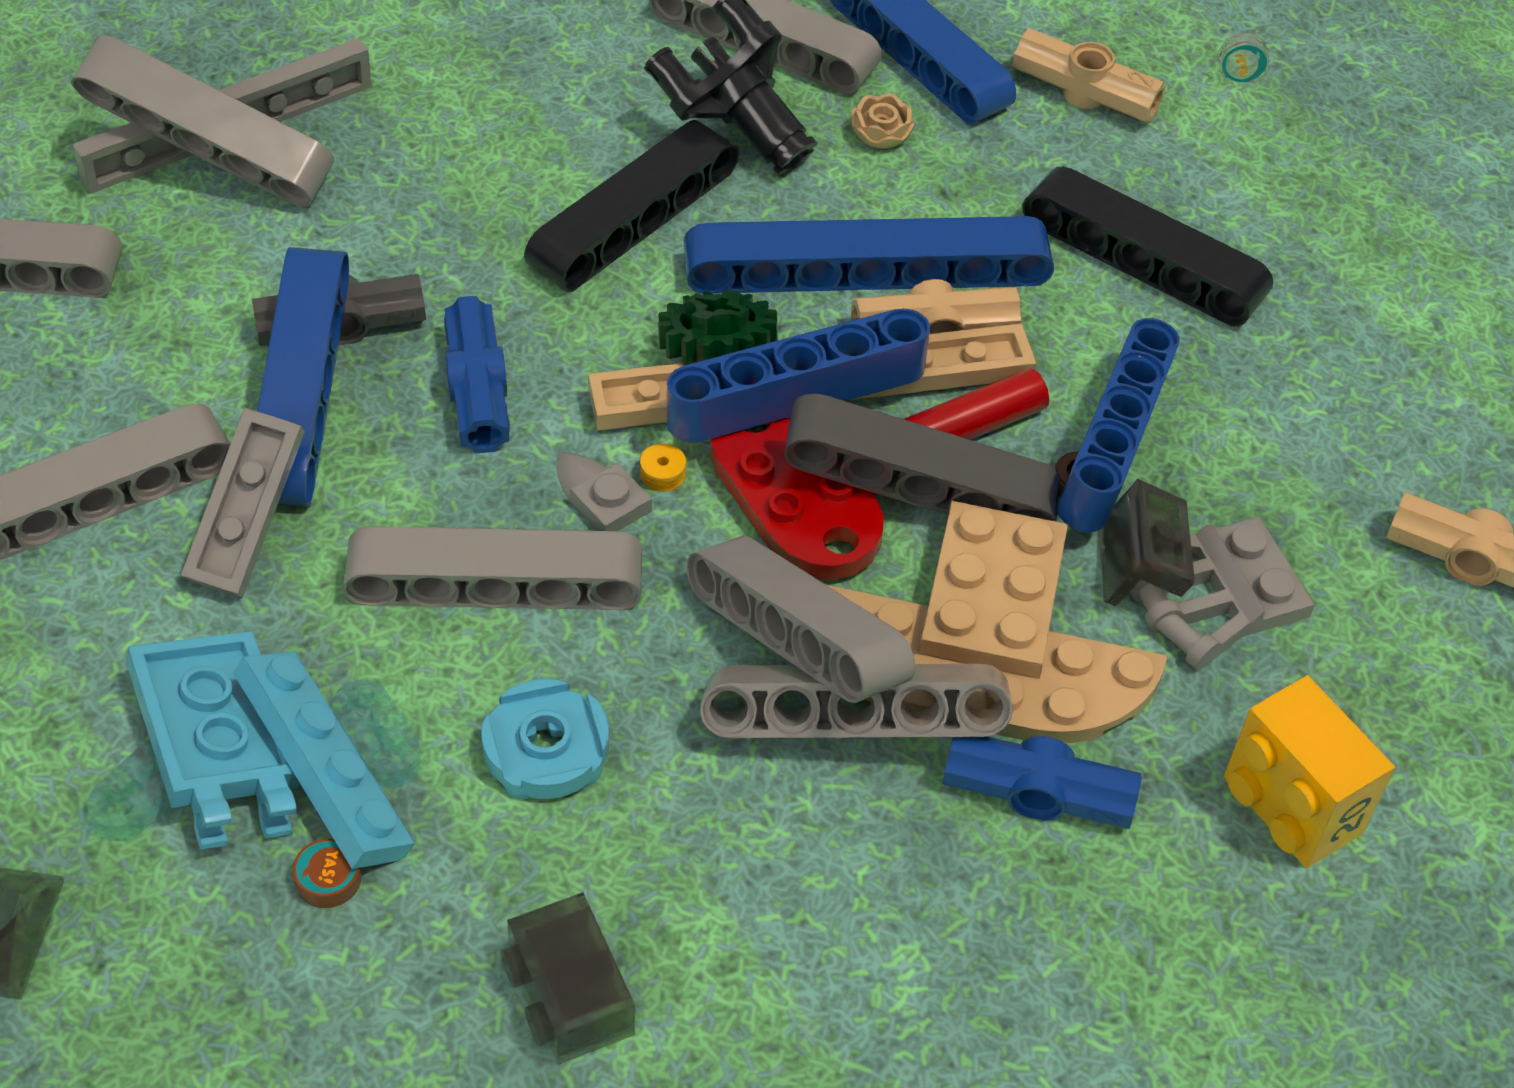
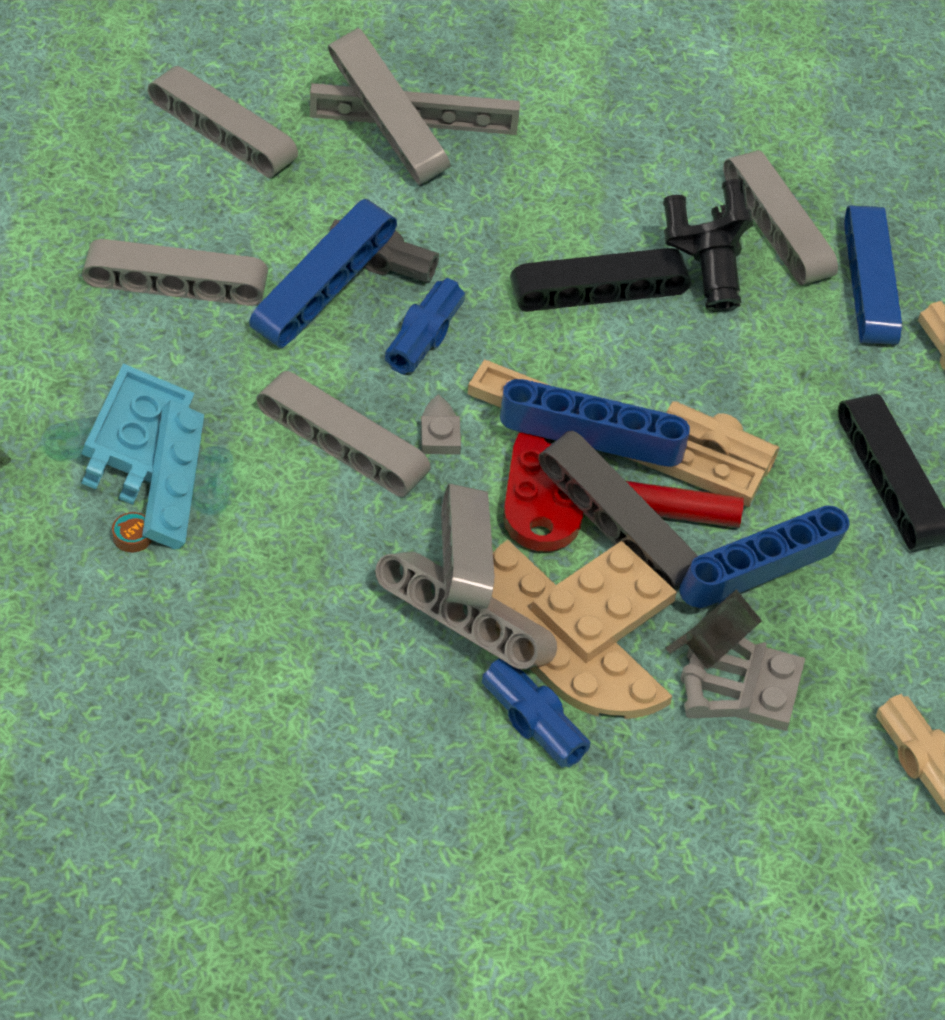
camera: 35 degrees right, 0 degrees up
(243, 503) = (238, 323): light grey plate -> none
(551, 770) = (290, 552): medium azure plate -> none
(569, 979) = (199, 650): clear smoke brick -> none
(663, 467) = (485, 434): yellow piece -> none
(715, 325) = (580, 372): dark green gear -> none
(867, 254) = (715, 383): blue beam -> none
(882, 121) = (800, 310): tan plate -> none
(1307, 771) = (676, 794): yellow brick -> none

